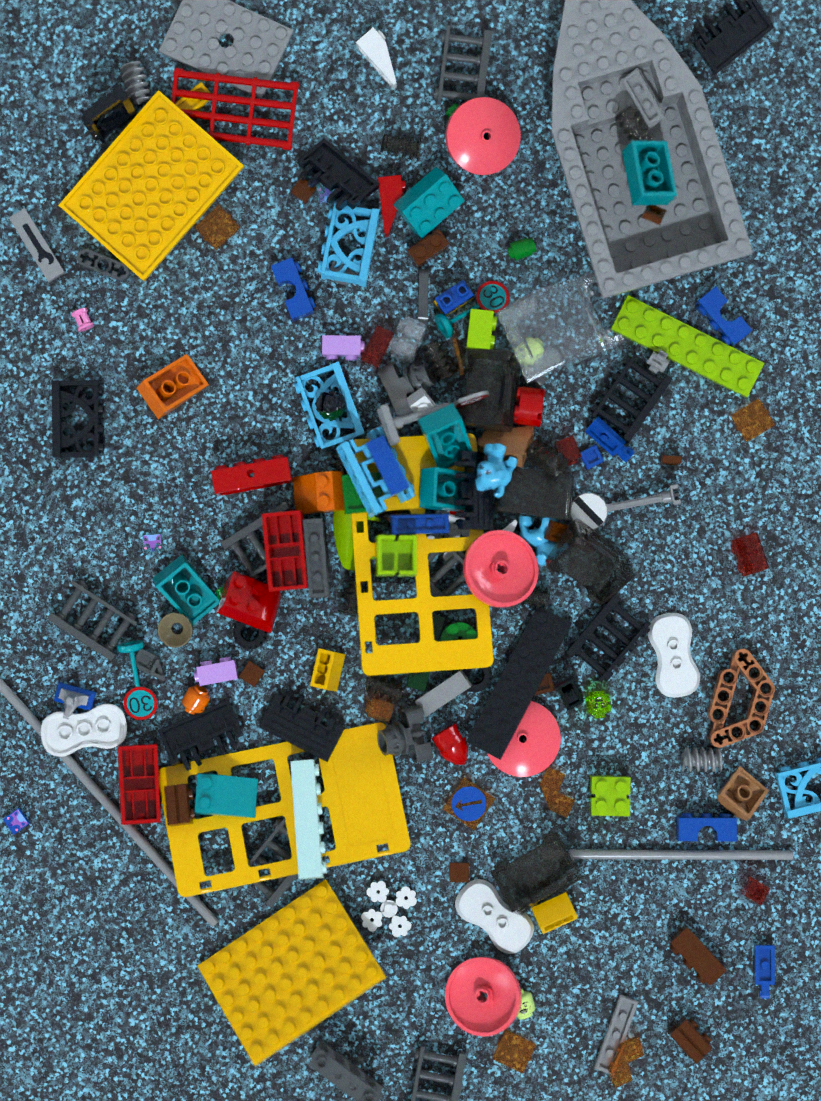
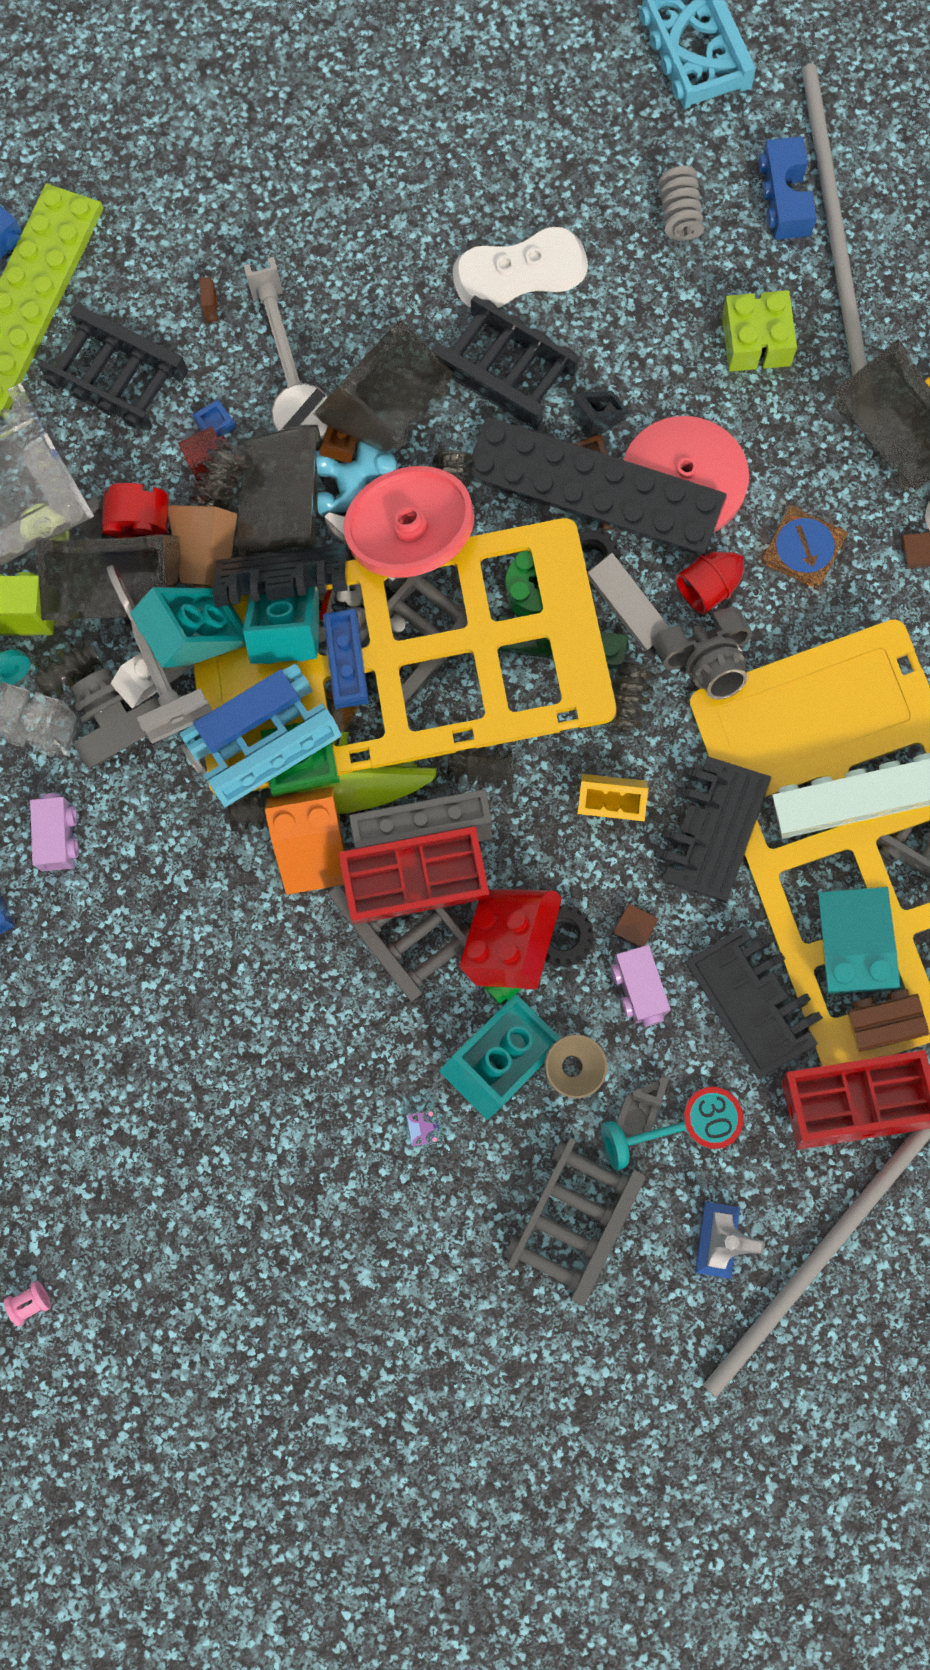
camera: 90 degrees left, 10 degrees down
(60, 398) = (173, 1326): black fence -> none
(99, 727) = (769, 1187): white plate -> none
(172, 386) = (140, 1124): orange slope -> none
(195, 699) = (694, 1017): orange head -> none
(238, 478) = (288, 958): red brick -> none
(330, 405) = (153, 833): black piece -> none
(351, 421) = (113, 829): medium azure fence -> none
(377, 347) = (51, 773): clear red brick -> none
(379, 709) = (669, 702): clear orange brick -> none
(396, 556) = (405, 679): lime piece -> none
(457, 356) = (49, 640): clear orange piece -> none
(495, 472) = (240, 540): medium azure animal -> none
(556, 801) = (756, 426): clear orange tile -> none
(598, 704) = (613, 365): clear neon green head -> none
(609, 439) = (181, 394): blue plate -> none
(658, 362) = (51, 333): light grey gear -> none
(742, 794) = (728, 143): medium nougat slope -> none
(744, 724) = (582, 135): nougat piece -> none
(749, 554) = (348, 170): clear red bracket -> none
(752, 420) = (138, 195): clear orange piece -> none
(755, 891) = (875, 104): clear red brick -> none

